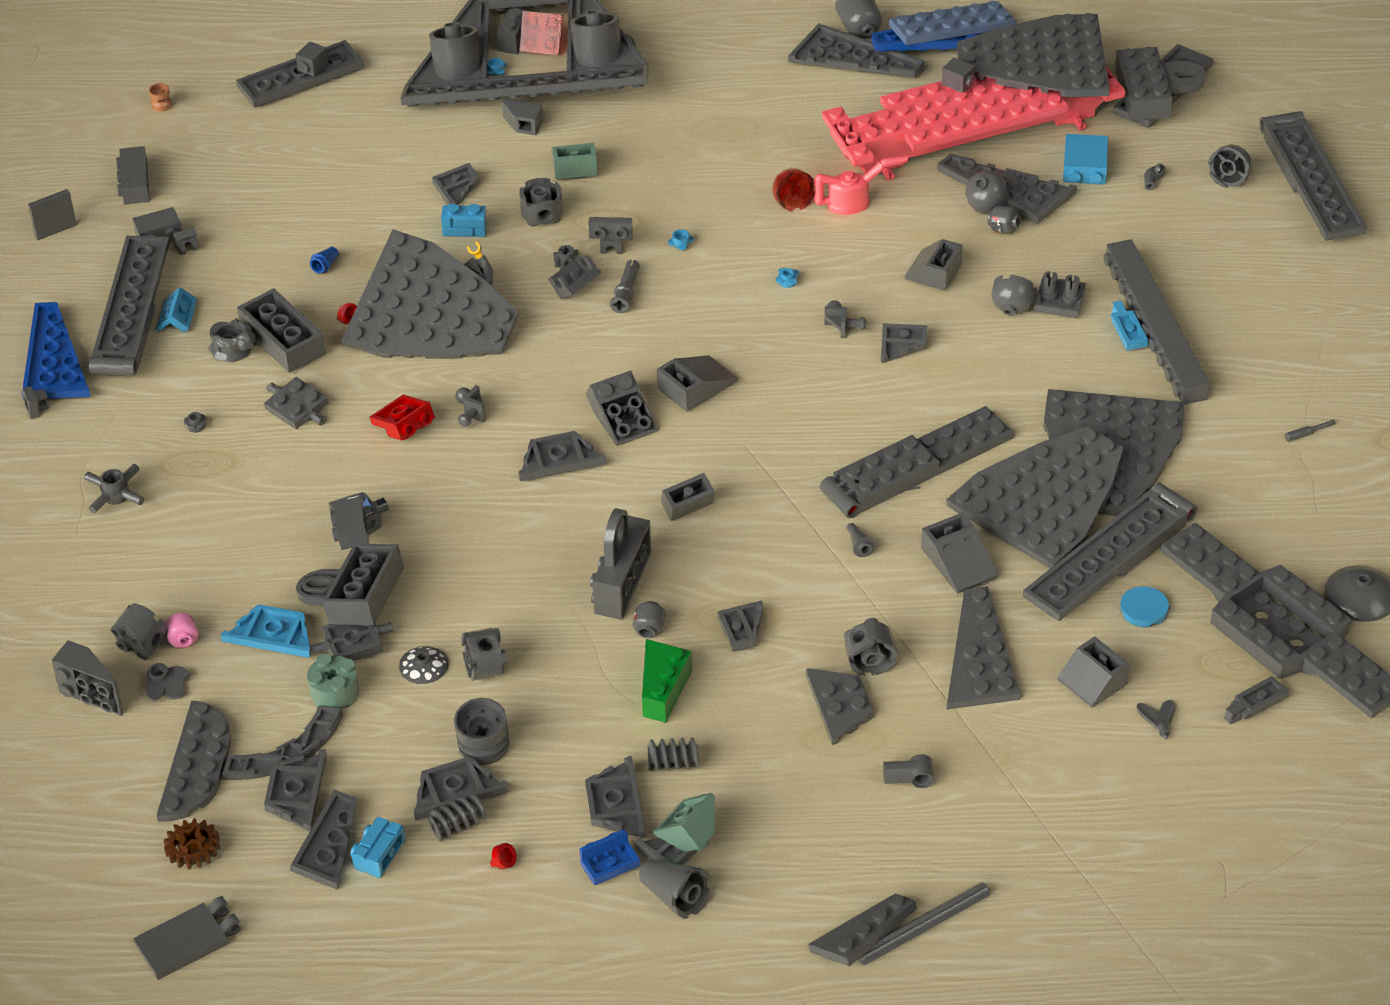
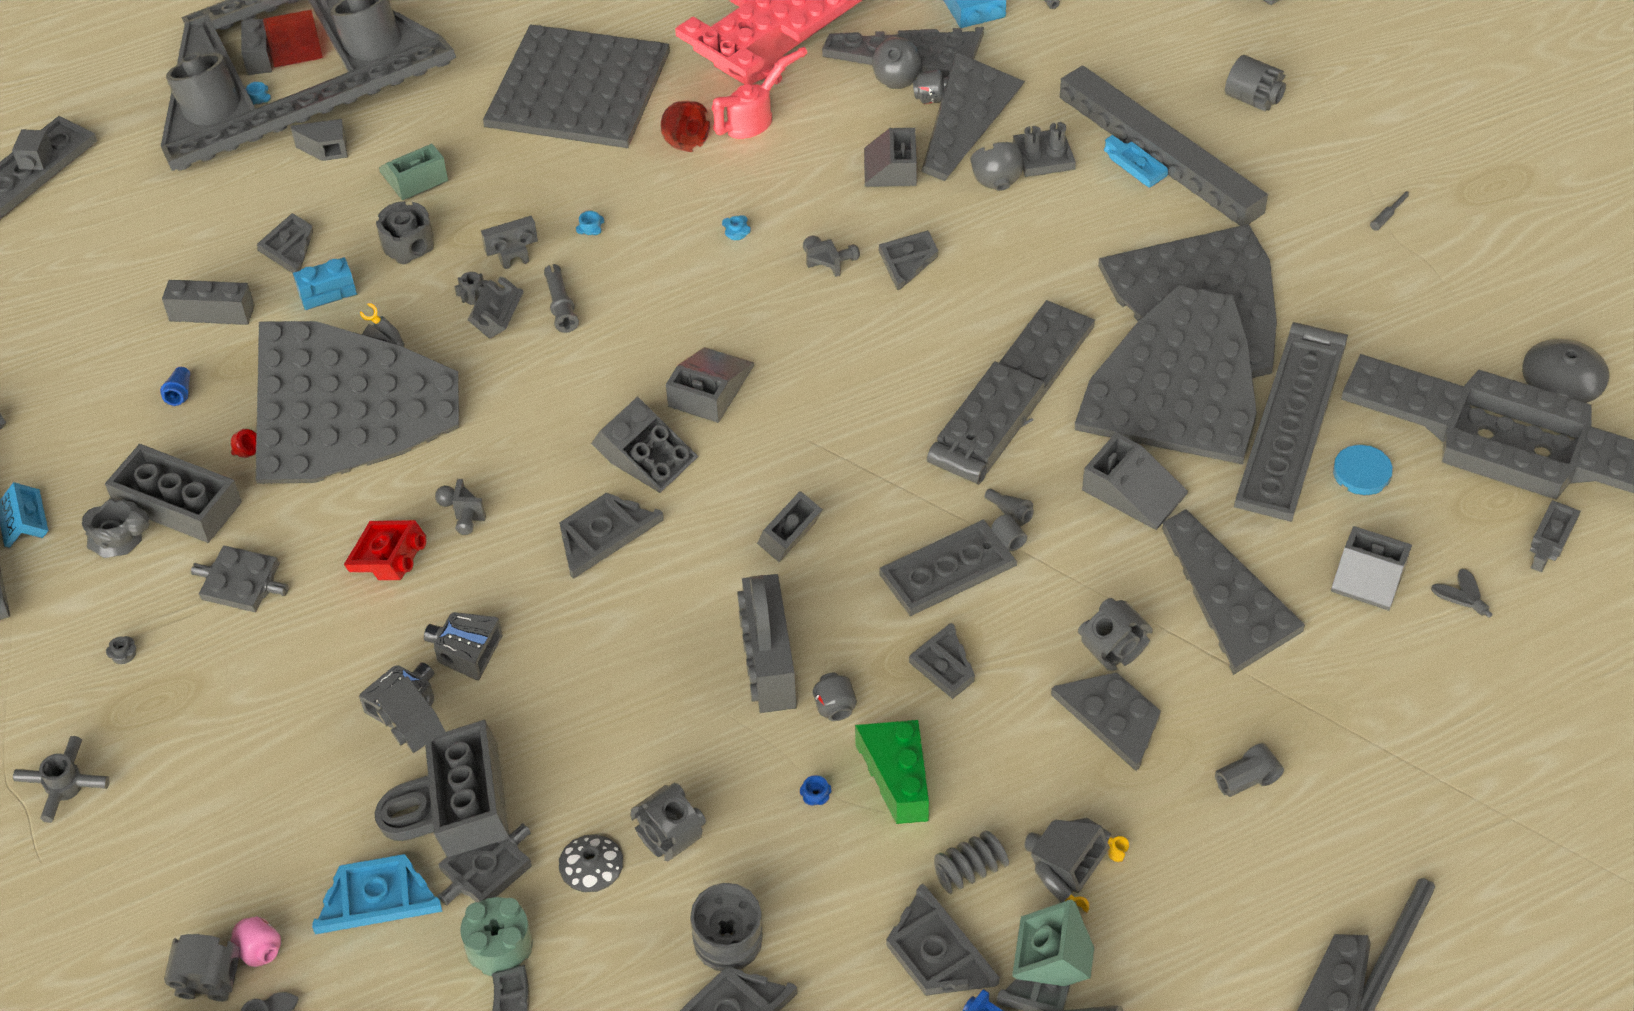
camera: 25 degrees left, 5 degrees up
(376, 207) = (208, 302): none -> dark grey brick
(421, 496) = (465, 642): none -> dark grey torso
(598, 674) = (812, 784): none -> blue plate
(735, 134) = (577, 86): none -> dark grey plate
(742, 774) = (1070, 854): none -> dark grey torso
(792, 563) = (953, 563): none -> dark grey hinge
(1022, 243) = (967, 108): none -> dark grey wing
(1263, 296) = (1255, 83): none -> dark grey gear

